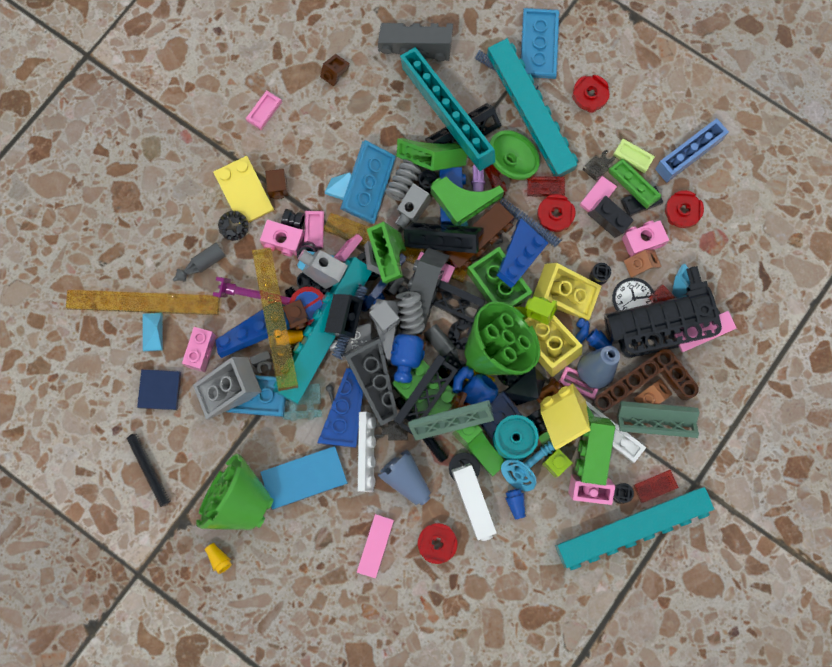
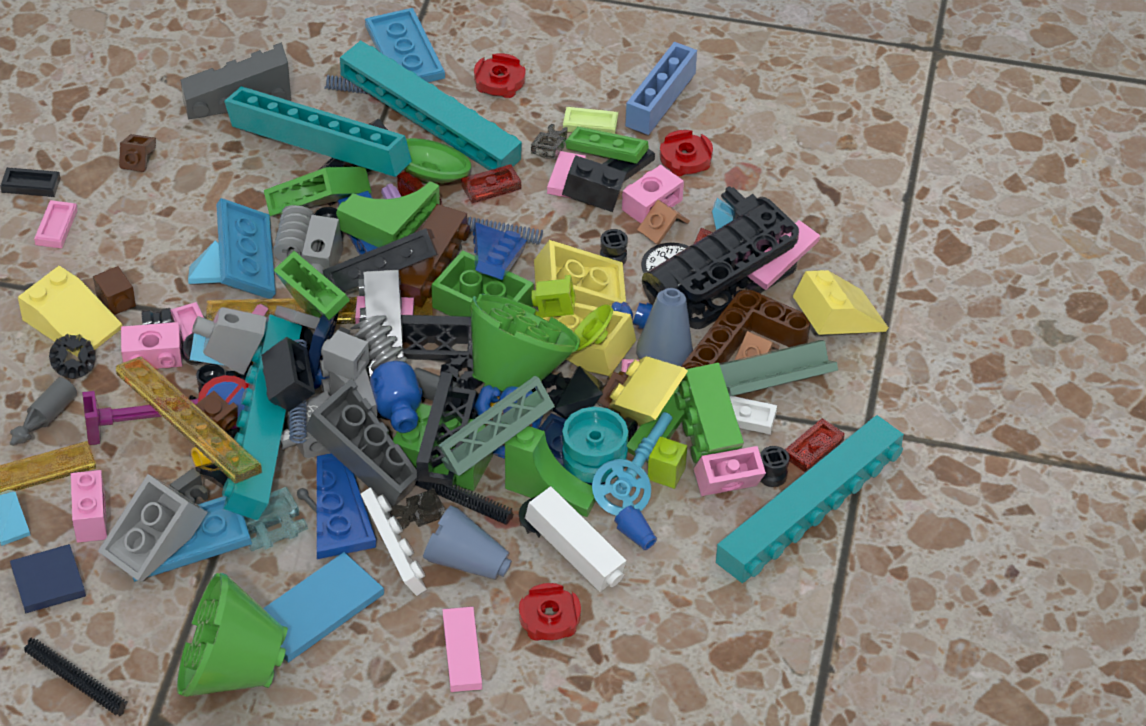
camera: 25 degrees left, 30 degrees down
(244, 335) = (156, 461): blue wing -> none
(261, 68) = (30, 182): none -> black tile
(552, 352) = (594, 326): none -> lime dish
(564, 206) = (533, 201): red plate -> none
(722, 387) = (836, 305): none -> light yellow slope

